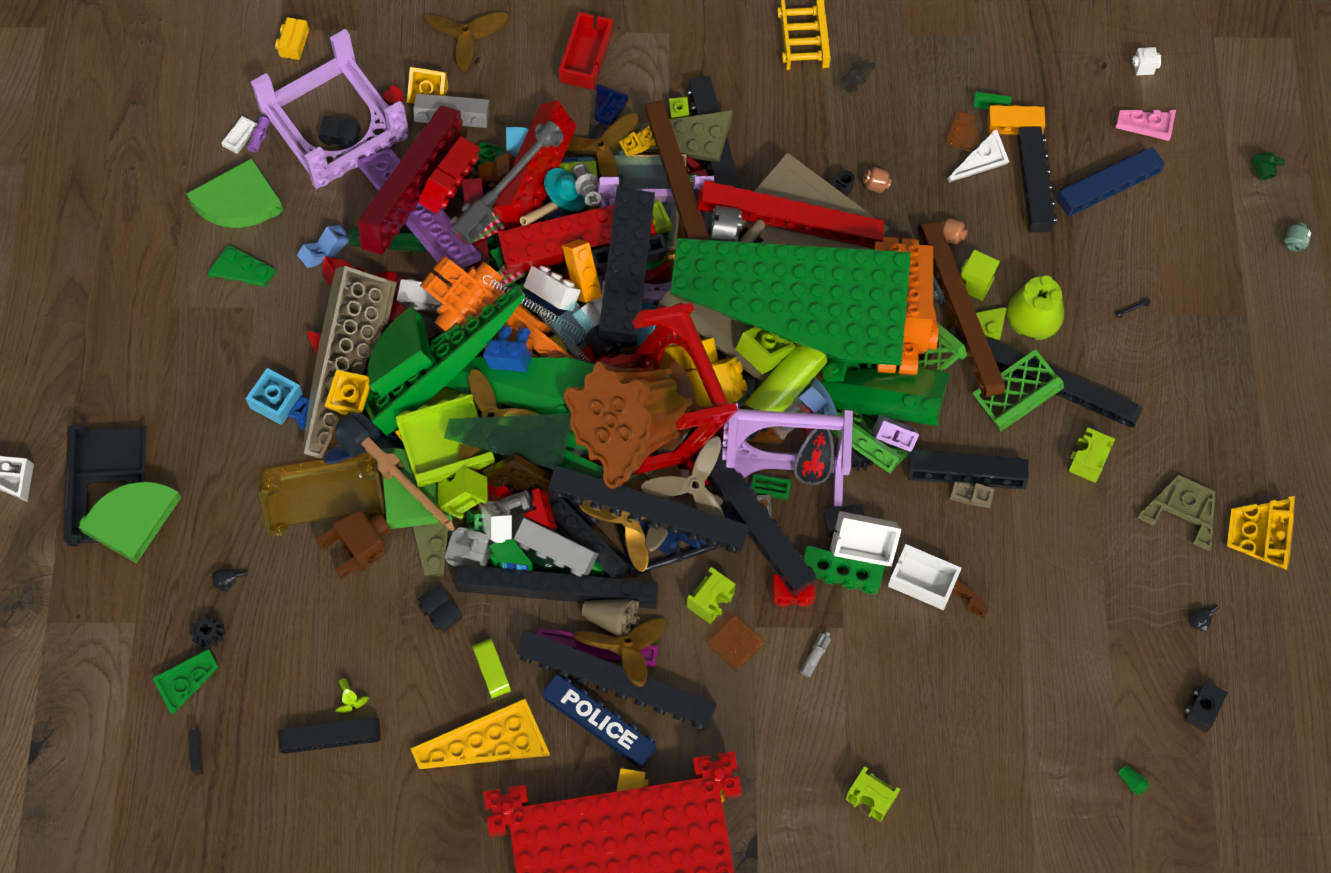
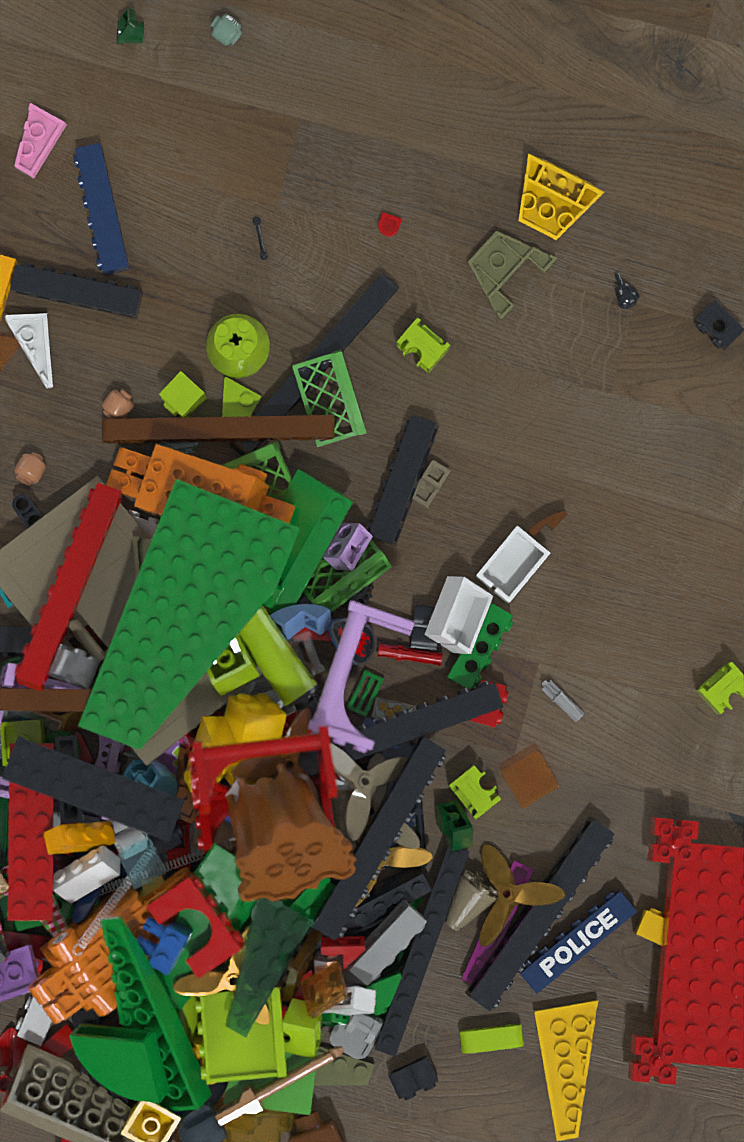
camera: 75 degrees left, 20 degrees up
(501, 497) = (324, 989): none -> clear orange plate
(526, 393) = (191, 894): none -> red arch
(676, 582) = (455, 824): none -> dark green brick
(815, 506) = (409, 654): none -> red pin
(1185, 406) = (389, 225): none -> red tile

